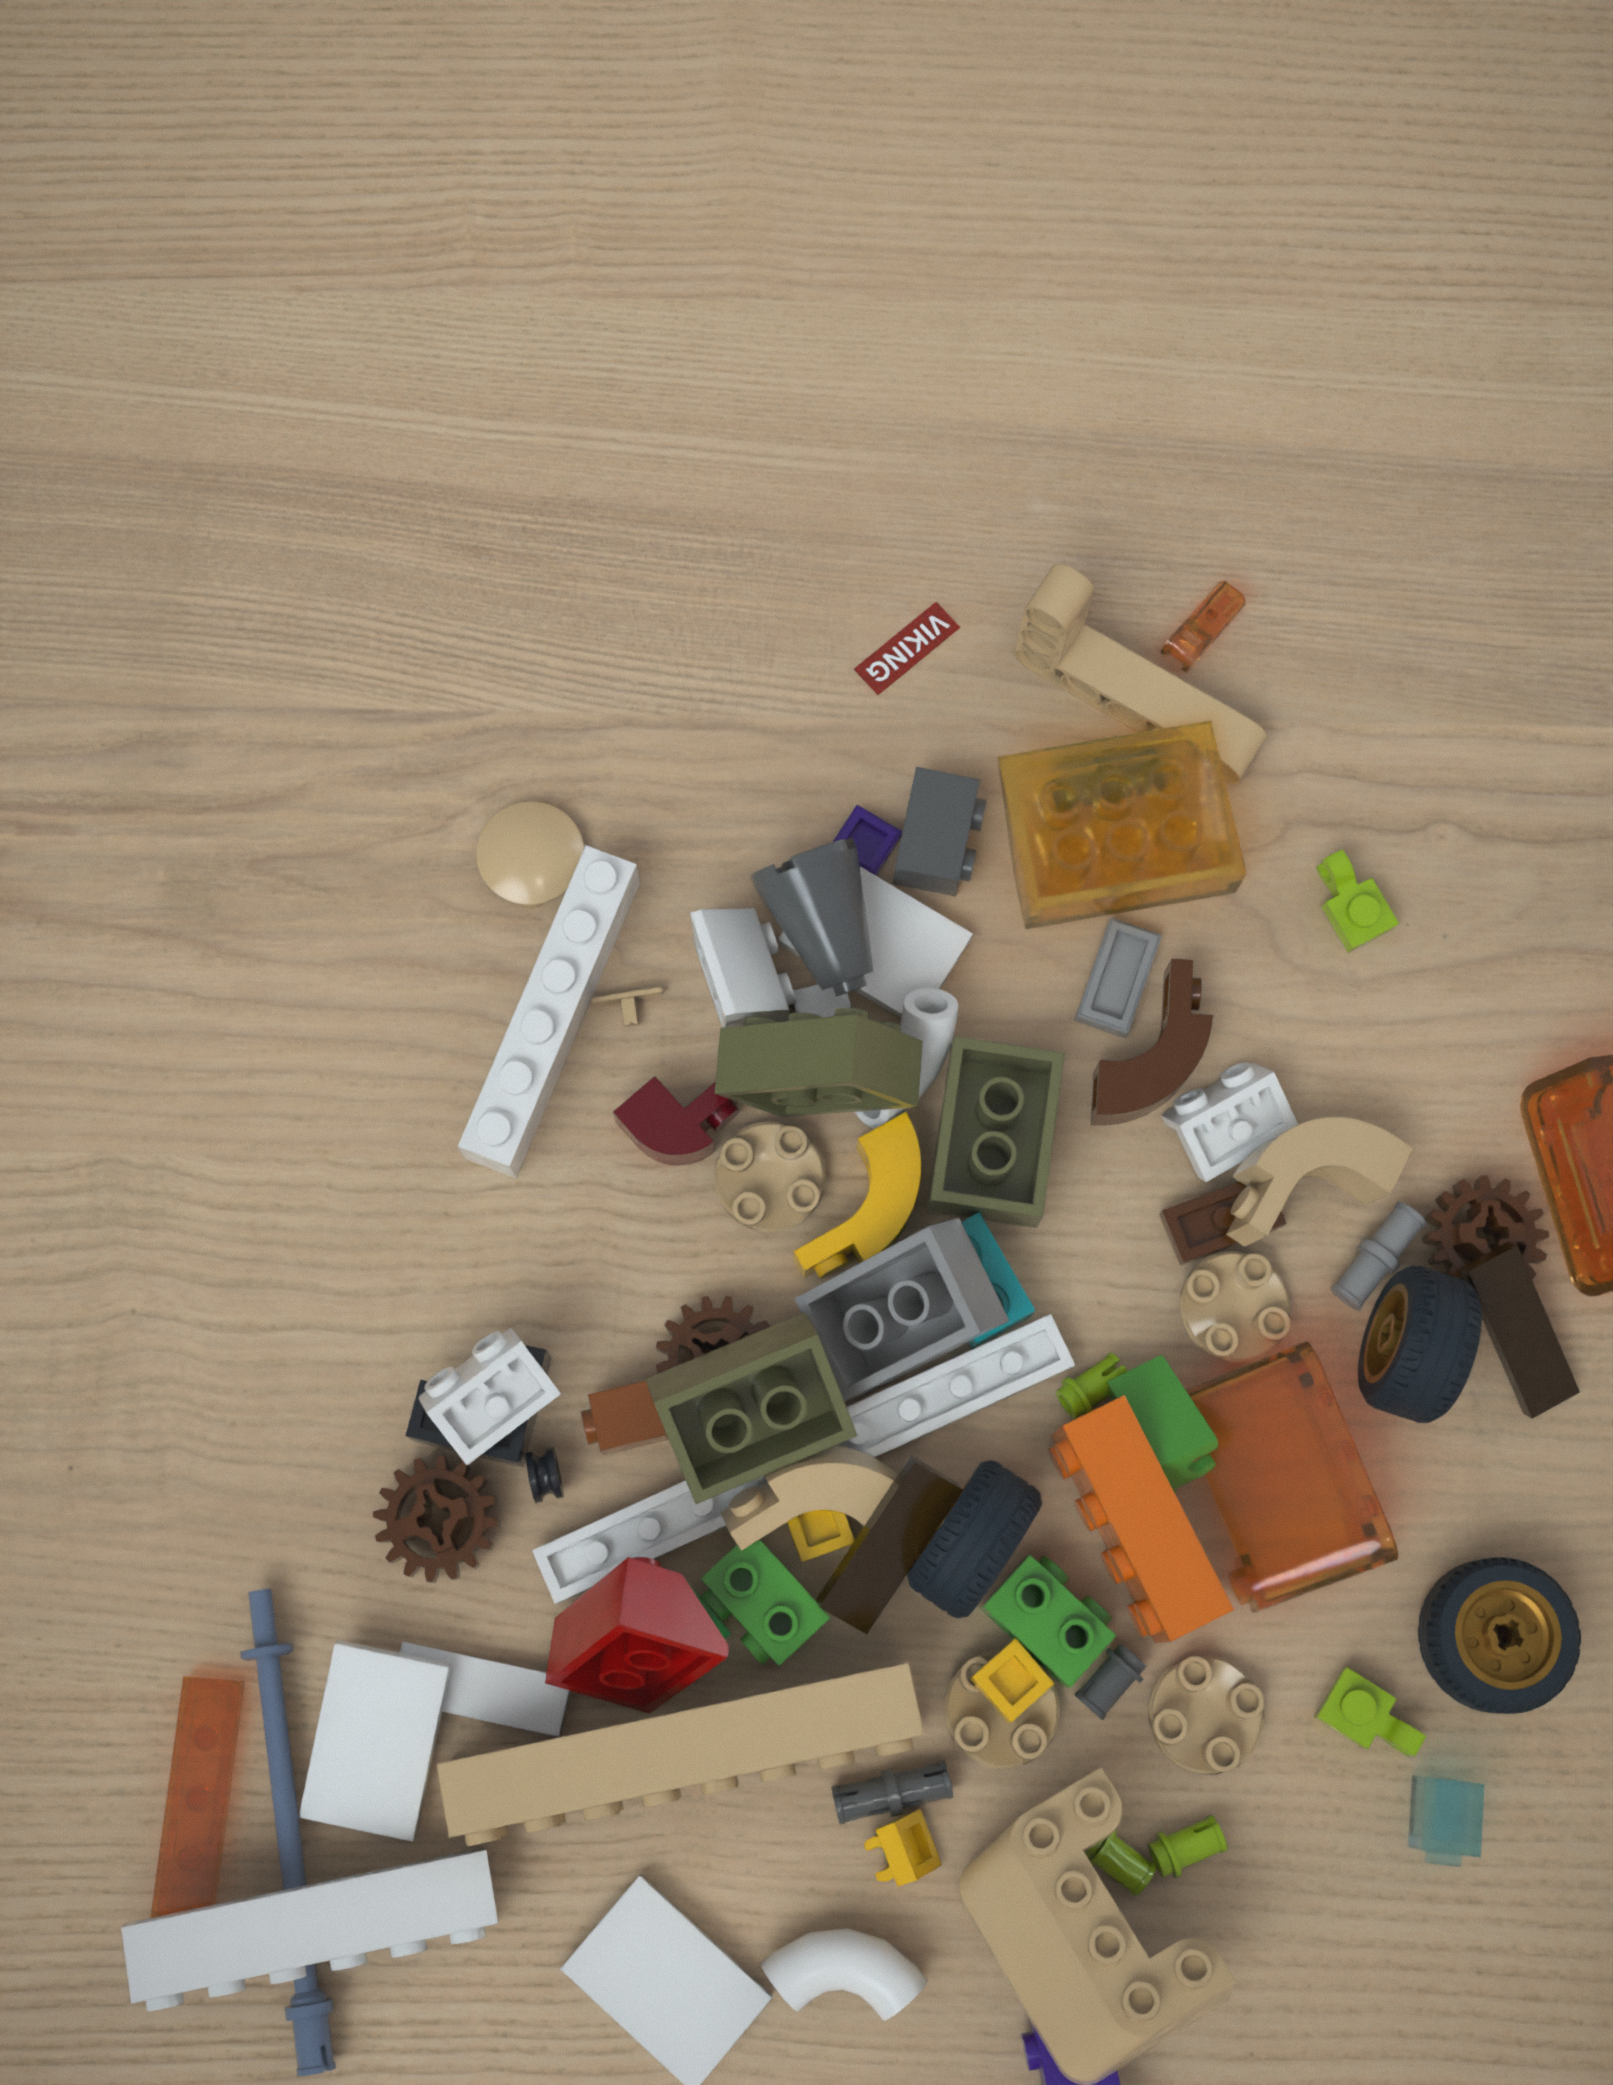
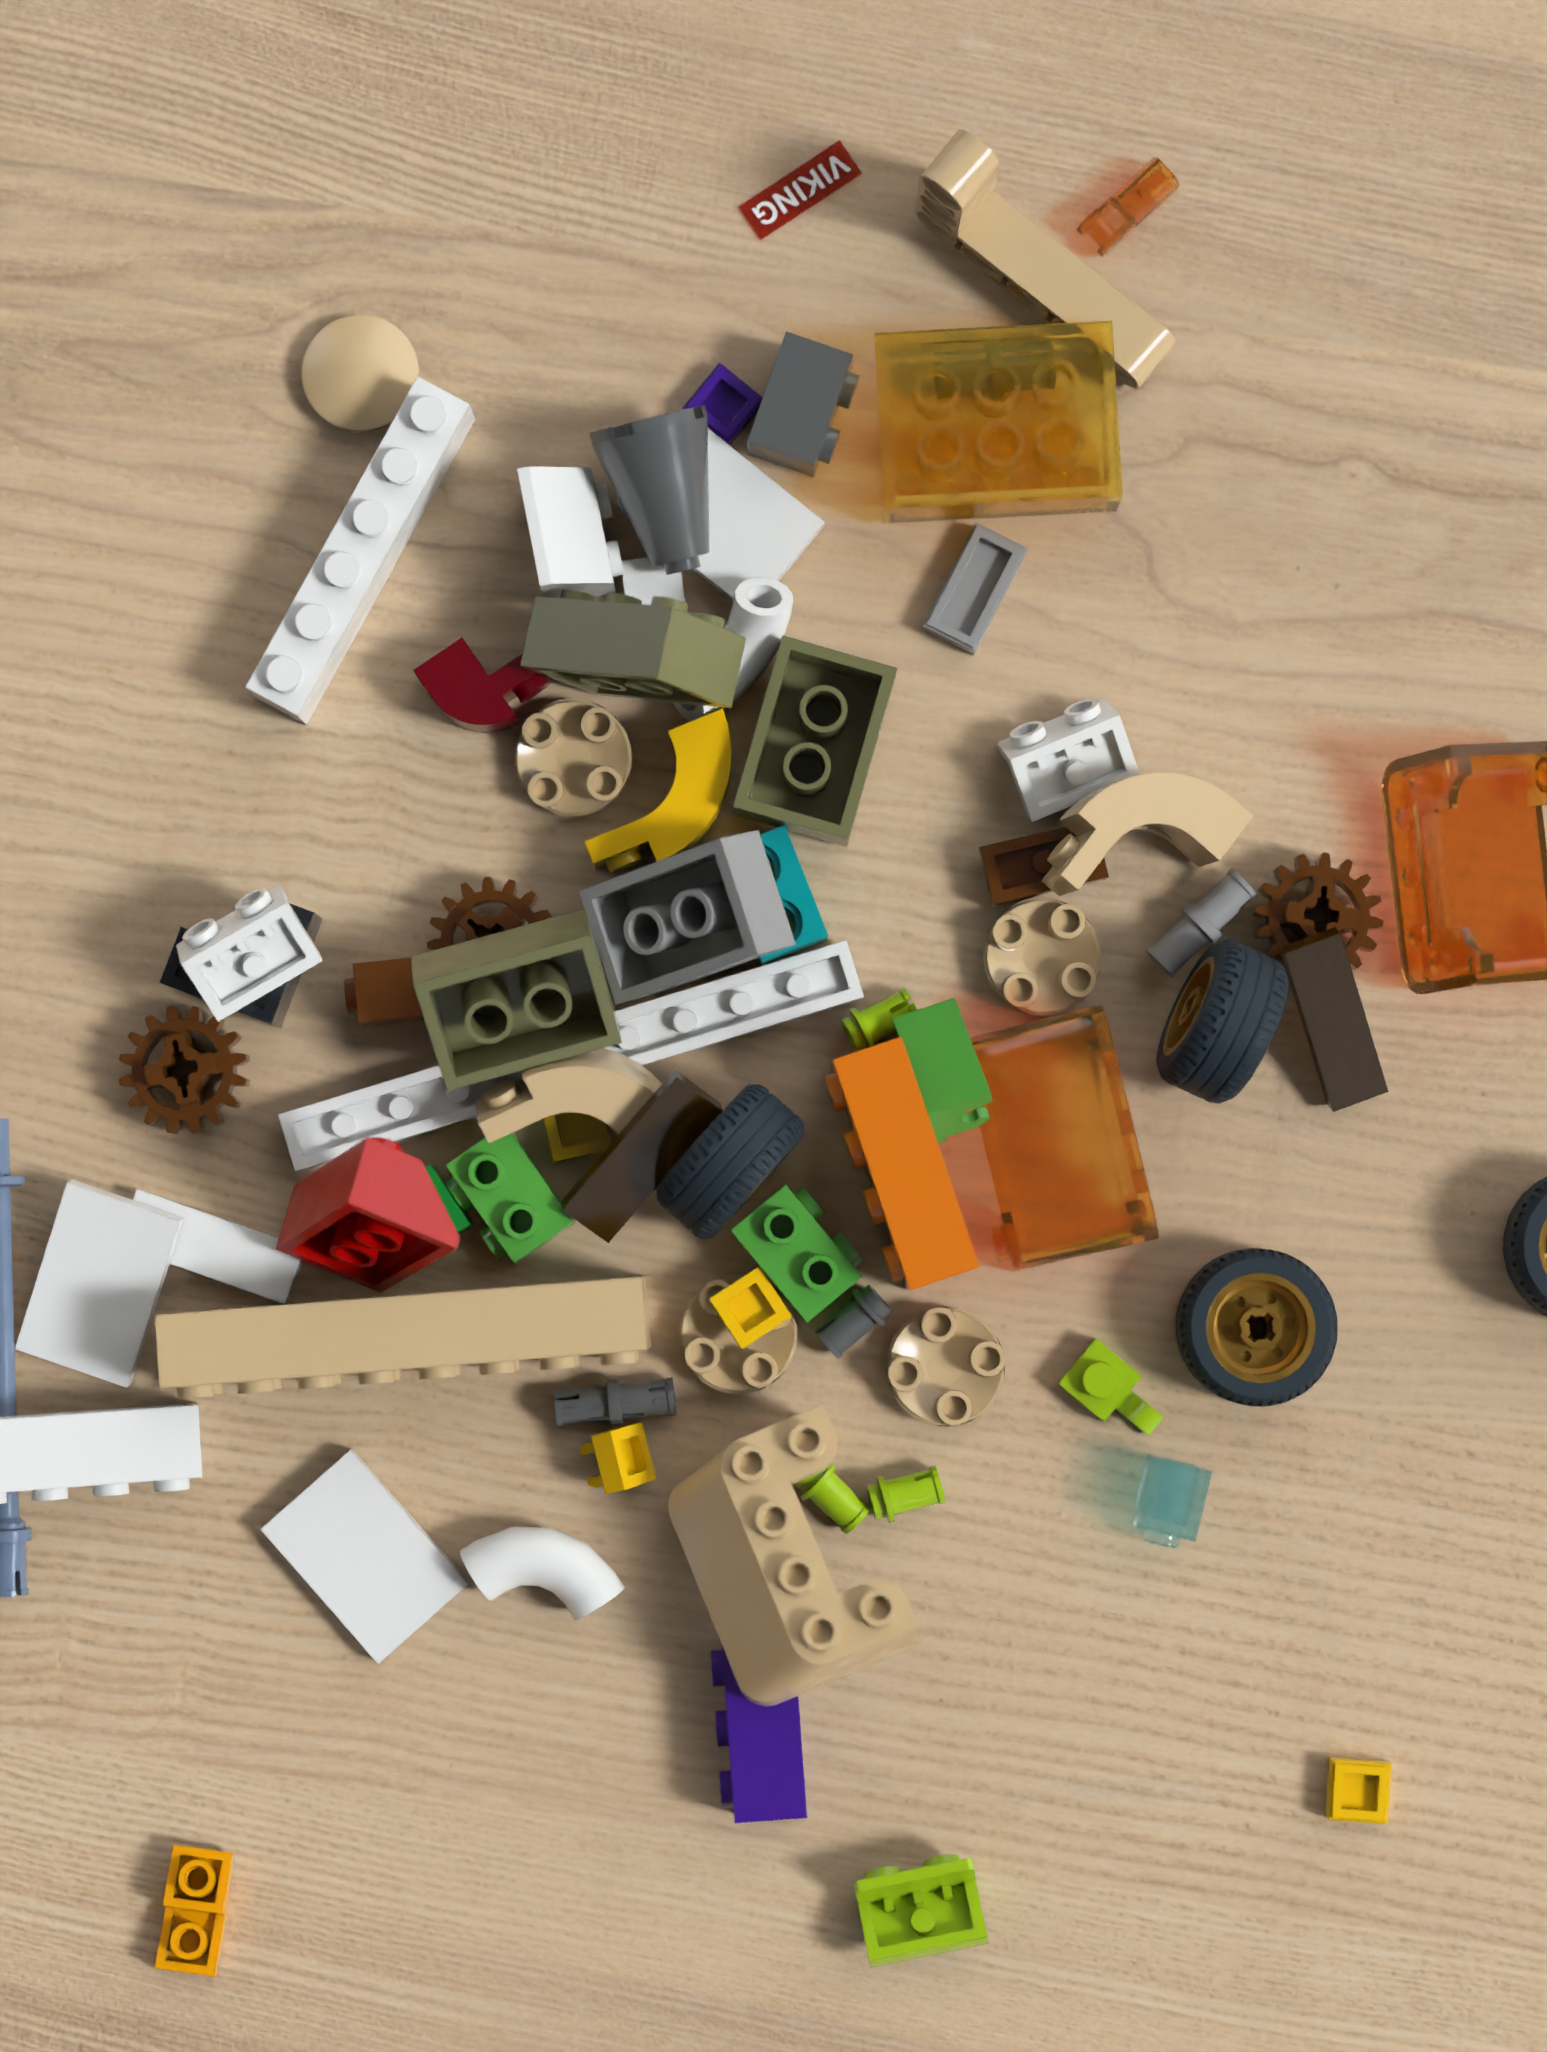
camera: 10 degrees right, 10 degrees up
(544, 1475) = (299, 1039): black bush -> none
(627, 1002) = (446, 551): tan piece -> none
(1145, 1083) = (988, 706): reddish brown arch -> none
(1357, 910) = (1244, 546): lime plate -> none

